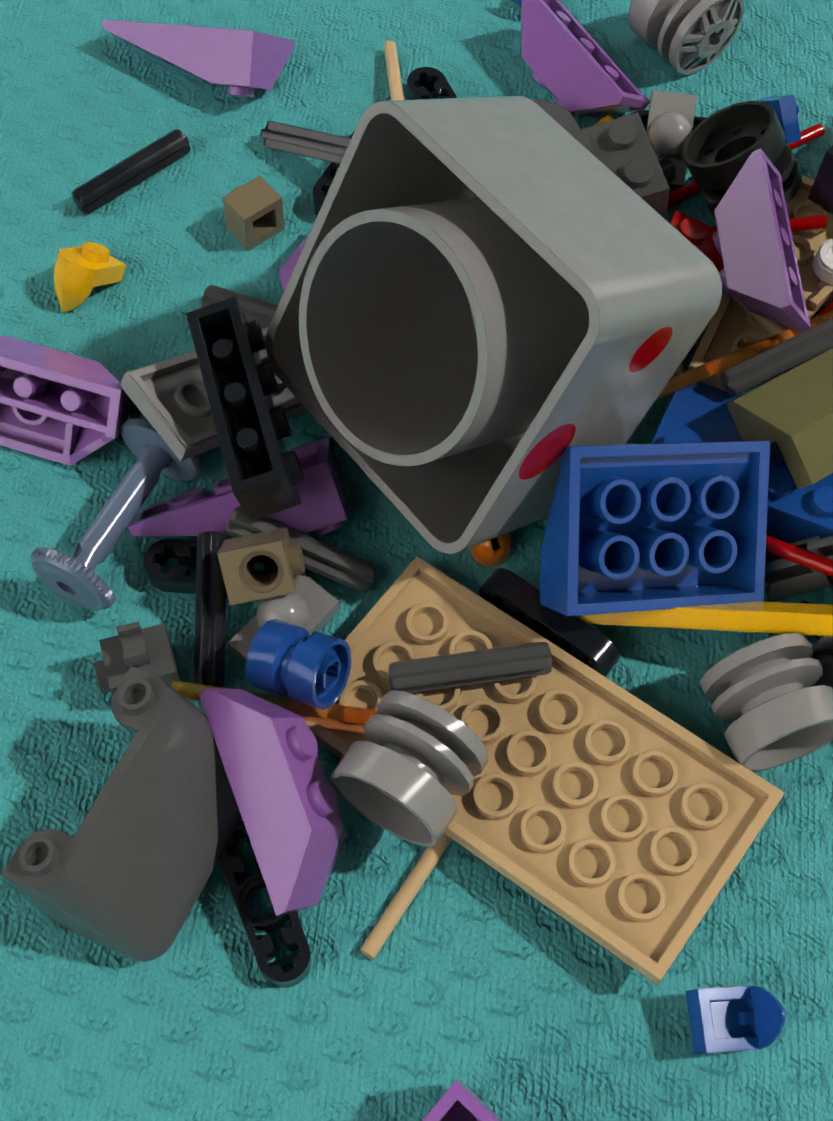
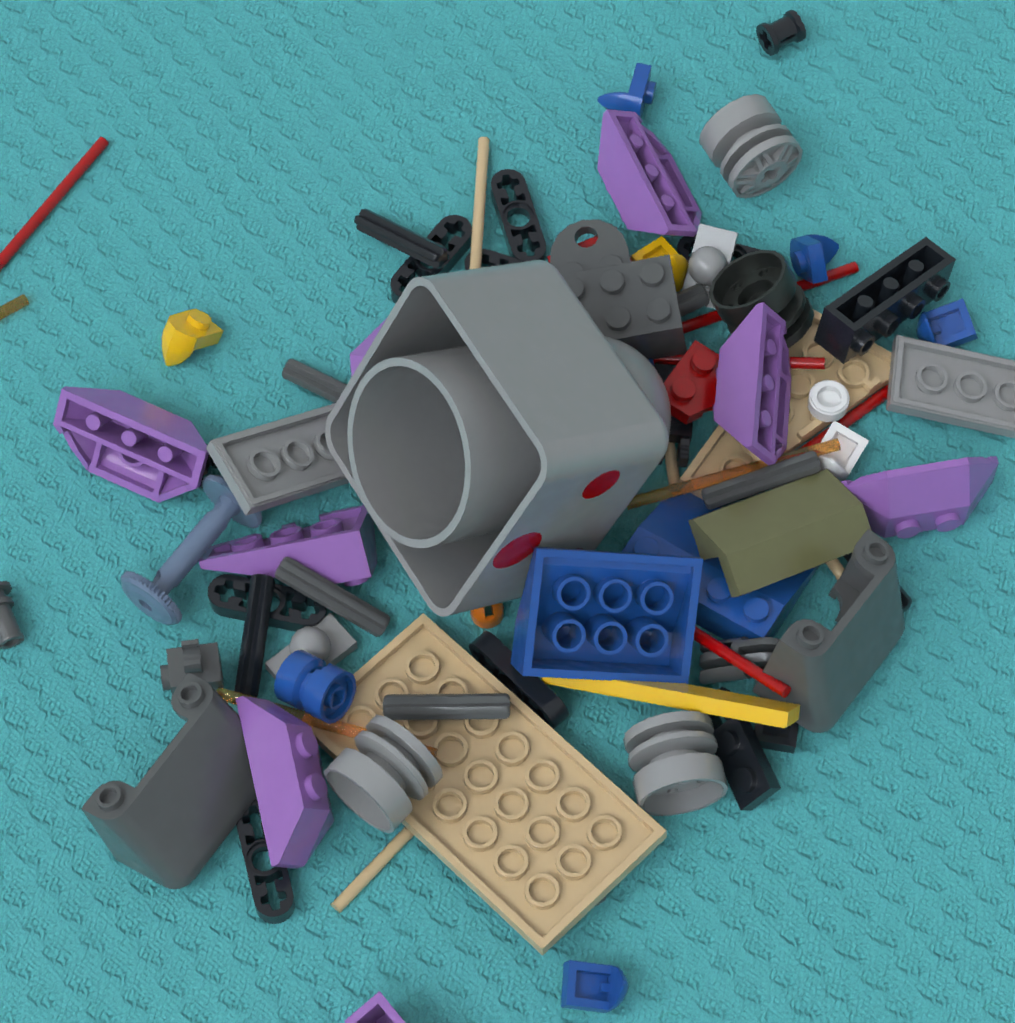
camera: 10 degrees right, 0 degrees up
(131, 171) = (238, 242): black axle -> none
(219, 55) = (335, 144): medium lavender wedge -> none
(243, 409) = (299, 480): black brick -> none
(248, 585) = (282, 616): dark tan brick -> none
(253, 212) = (337, 295): dark tan plate -> none

